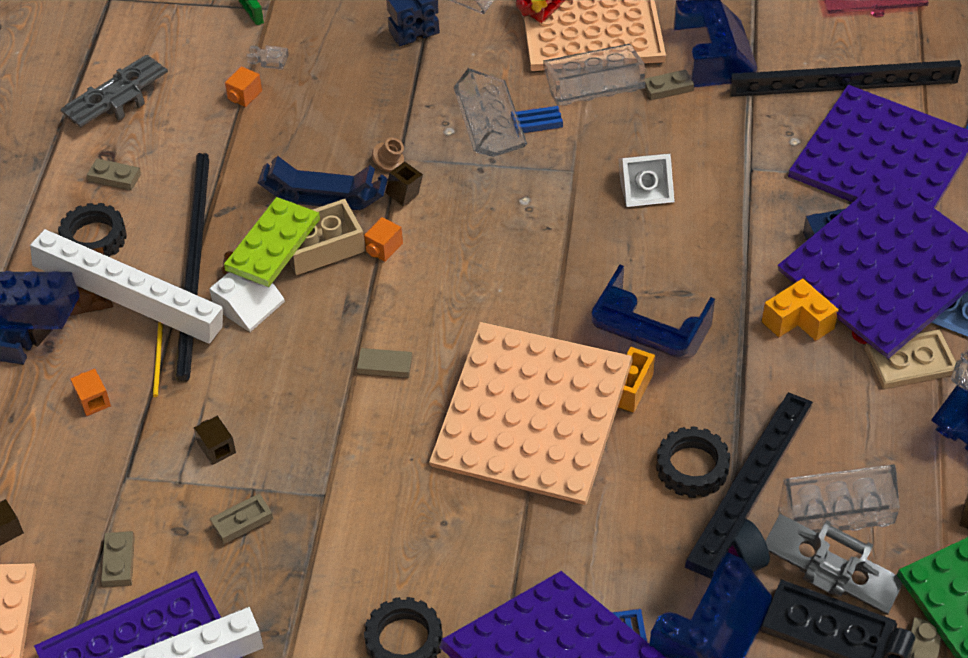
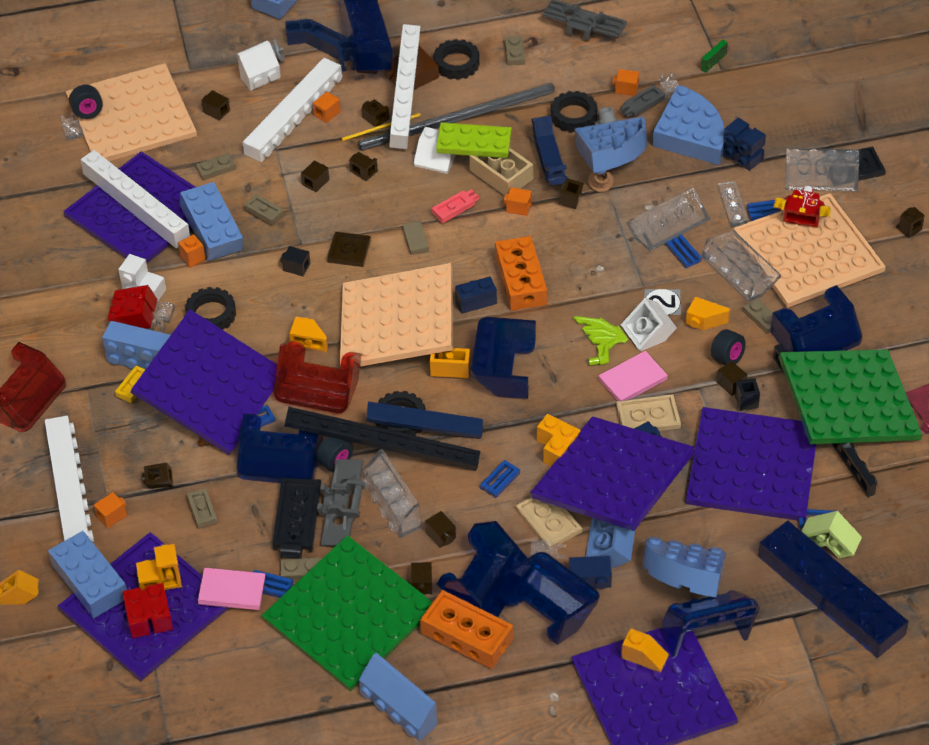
camera: 70 degrees right, 0 degrees up
(71, 434) = (292, 110): none -> white brick
(134, 342) = (372, 110): none -> dark brown brick
(226, 382) = (363, 166): none -> dark brown brick
(232, 580) = (211, 221): none -> medium blue brick
(252, 132) = (572, 99): none -> black tyre
(279, 628) = (191, 251): none -> orange brick
(281, 83) = (642, 101): none -> dark grey hinge
(294, 121) = (606, 115): none -> light grey piece
(350, 121) = (611, 143): none -> medium blue brick
(352, 52) = (690, 127): none -> medium blue brick
(353, 306) = (455, 205): none -> coral hinge
(363, 504) = (295, 261): none -> black brick
(366, 441) = (349, 249): none -> dark brown tile
(490, 56) = (733, 203): none -> clear plate
(507, 270) = (526, 292): none -> orange brick
(508, 525) = (309, 334): none -> light orange slope
(512, 23) = (757, 207): none -> blue tile
(523, 313) = (476, 294): none -> dark blue brick
(603, 161) = (667, 298): none -> sticker
(609, 534) = (315, 384): none -> clear red windscreen
(638, 225) = (601, 333): none -> lime animal
(649, 127) = (706, 314): none -> light orange slope
(714, 119) = (728, 347): none -> black wheel
(716, 218) = (633, 377): none -> bright pink tile
(723, 434) = (424, 420): none -> dark blue tile
(757, 132) = (729, 375): none -> dark brown brick
(778, 222) = (658, 410): none -> tan tile
(792, 123) = (747, 394): none -> black brick
(827, 46) = (849, 396): none -> green plate
(829, 391) = (511, 473): none -> blue tile
(910, 467) = (440, 529): none -> dark brown brick

